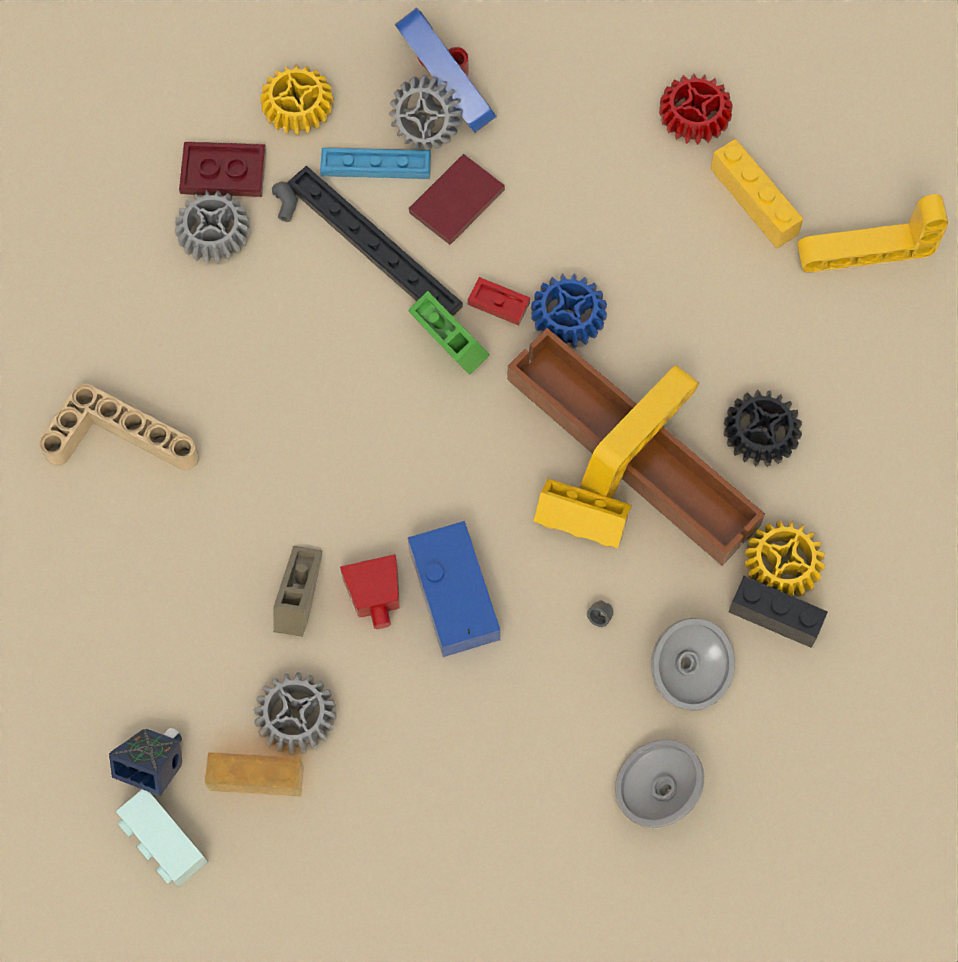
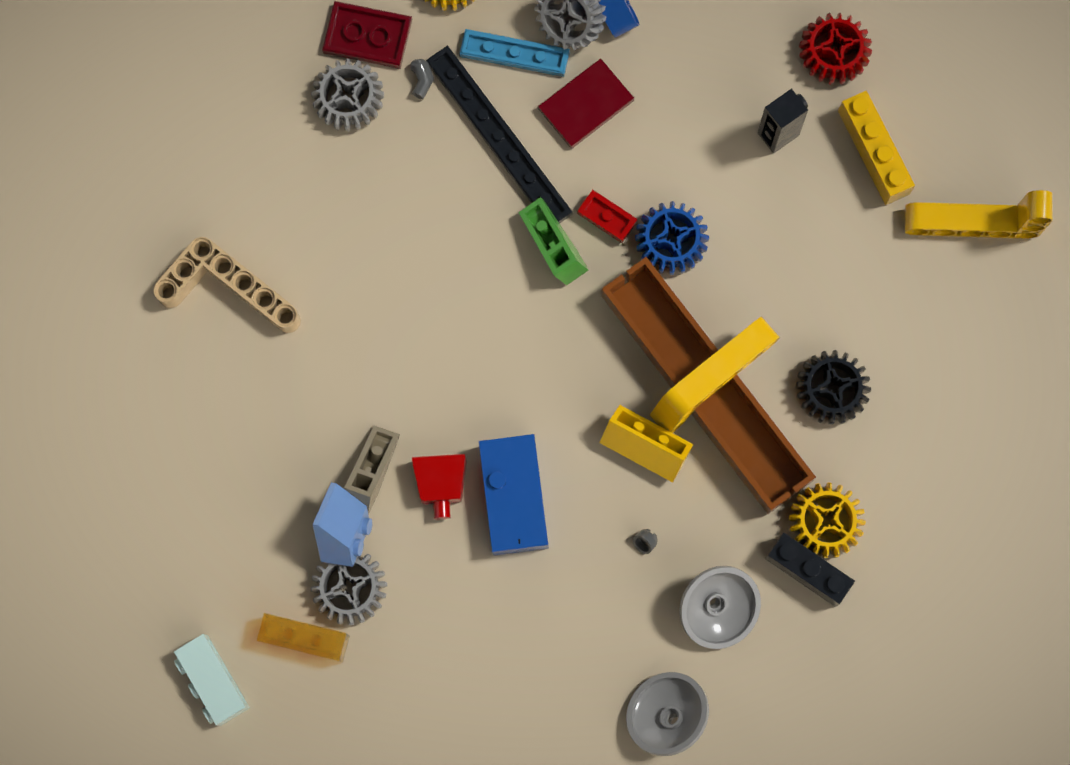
camera: 15 degrees right, 10 degrees up
(148, 760) = (210, 609): dark blue torso -> none
(277, 648) = (341, 527): none -> medium blue slope
(658, 177) = (783, 120): none -> black brick

